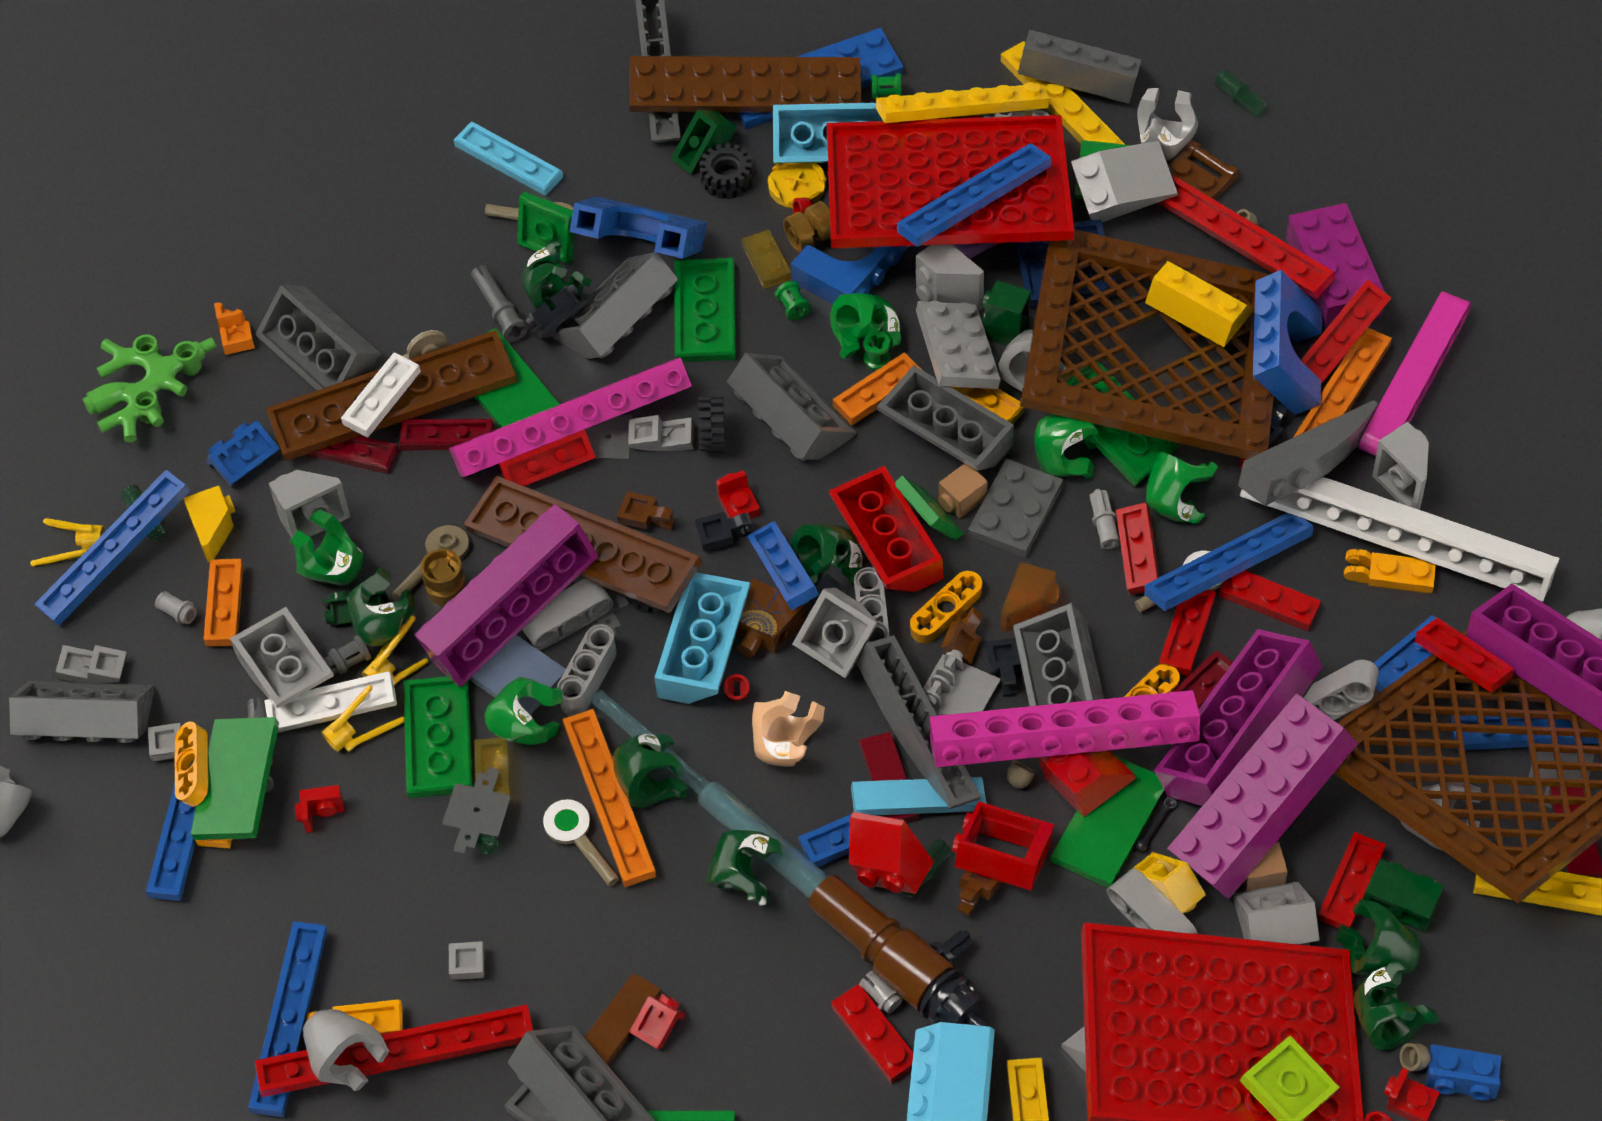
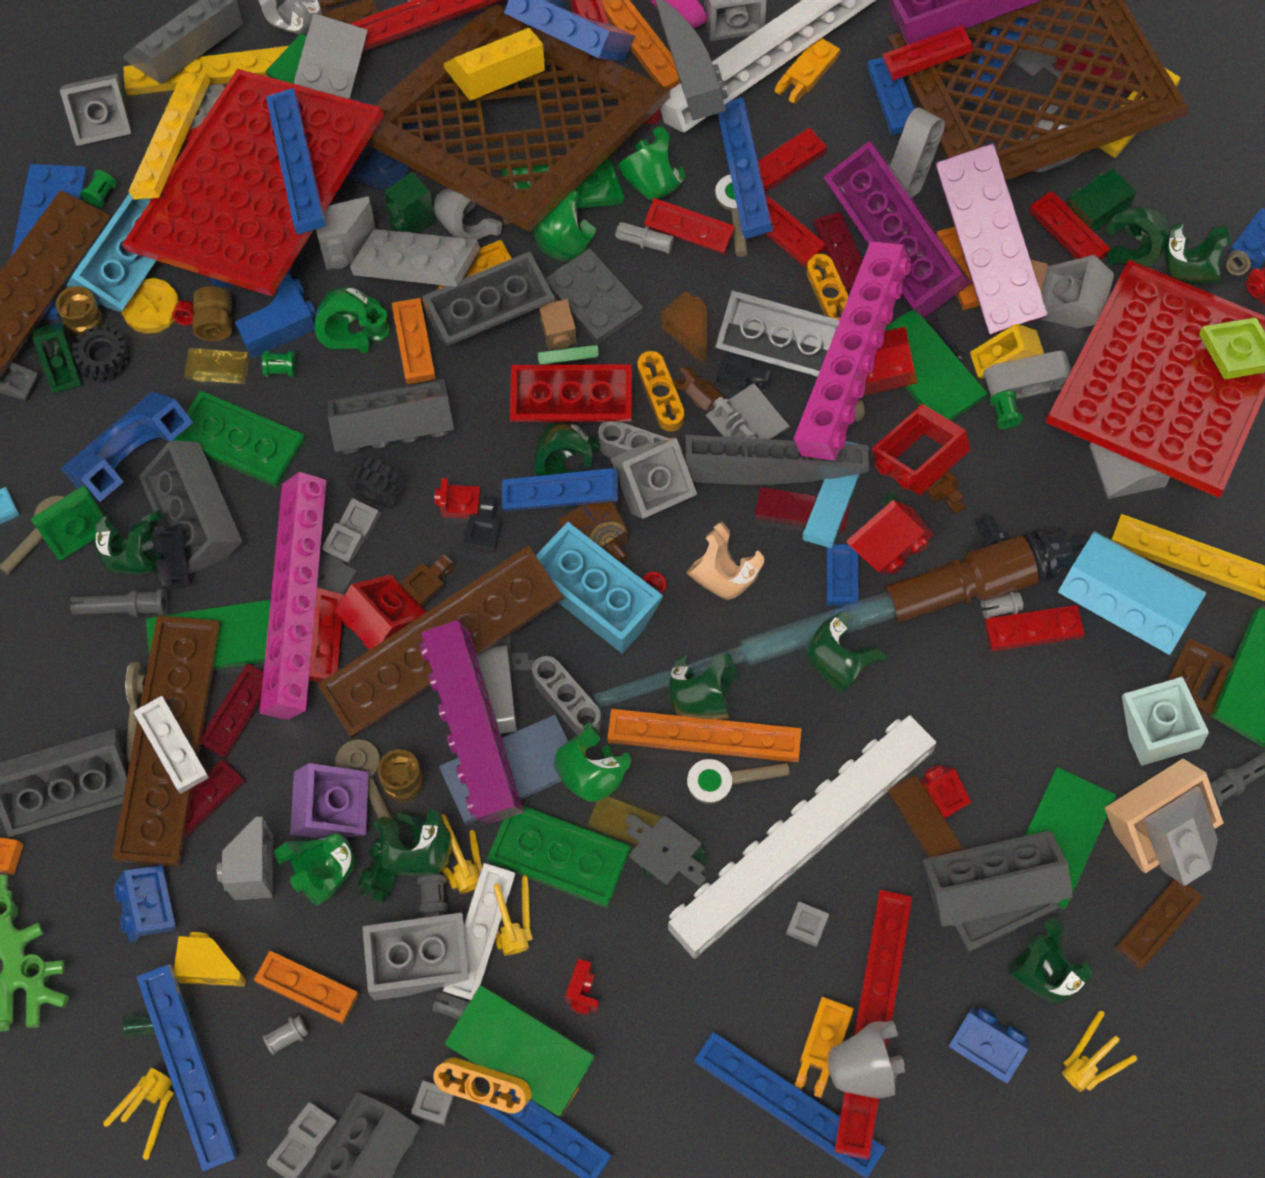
camera: 65 degrees left, 10 degrees up
(393, 536) = (329, 801): none -> medium lavender slope
(552, 918) = (801, 836): none -> white brick
(594, 484) = (377, 609): none -> red slope
(753, 132) = (78, 310): none -> pearl gold wheel
(965, 43) = (96, 109): none -> light grey slope
(1102, 906) = (1006, 409): none -> green bush

